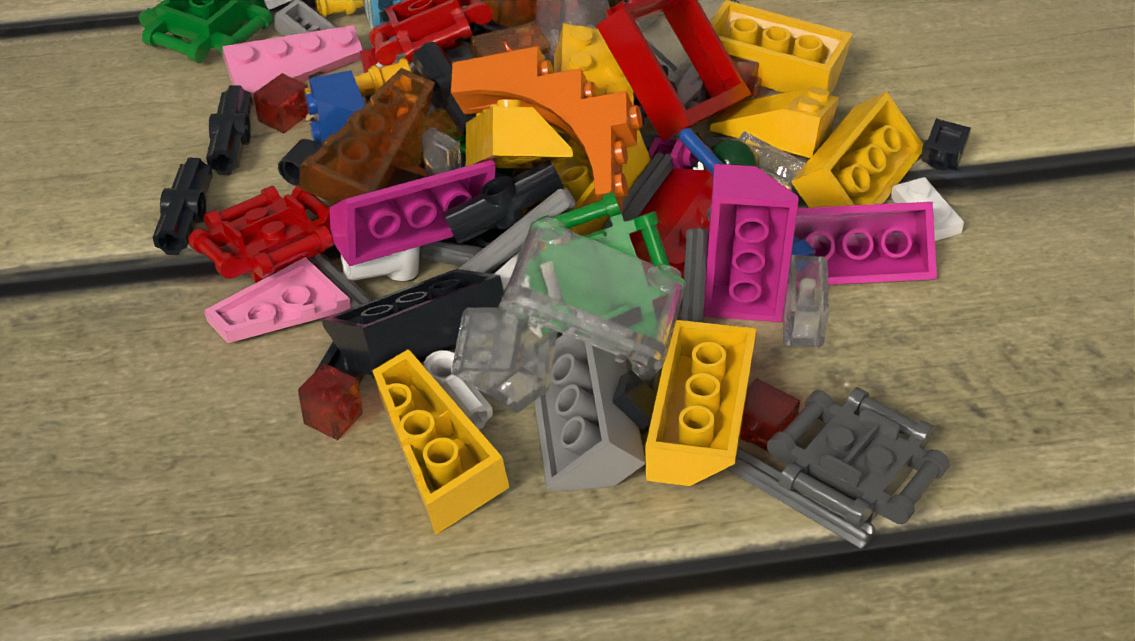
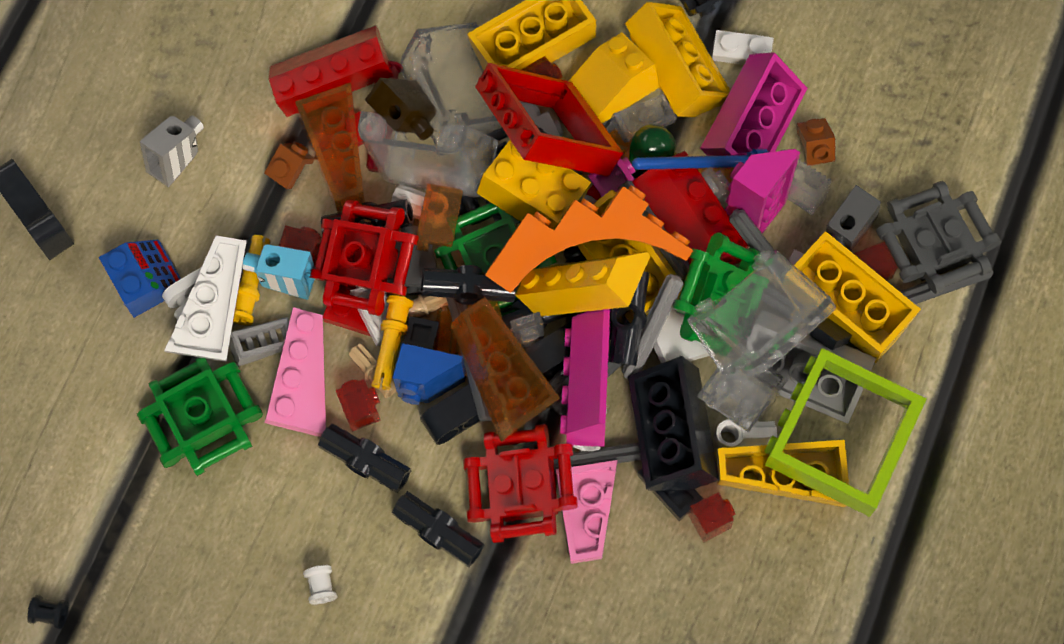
camera: 55 degrees left, 25 degrees up
(74, 153) = (320, 584): none -> white bush
(508, 499) = (862, 502): none -> lime window
(801, 361) = (857, 214): none -> dark grey torso
(874, 305) = (817, 141): none -> dark orange bracket

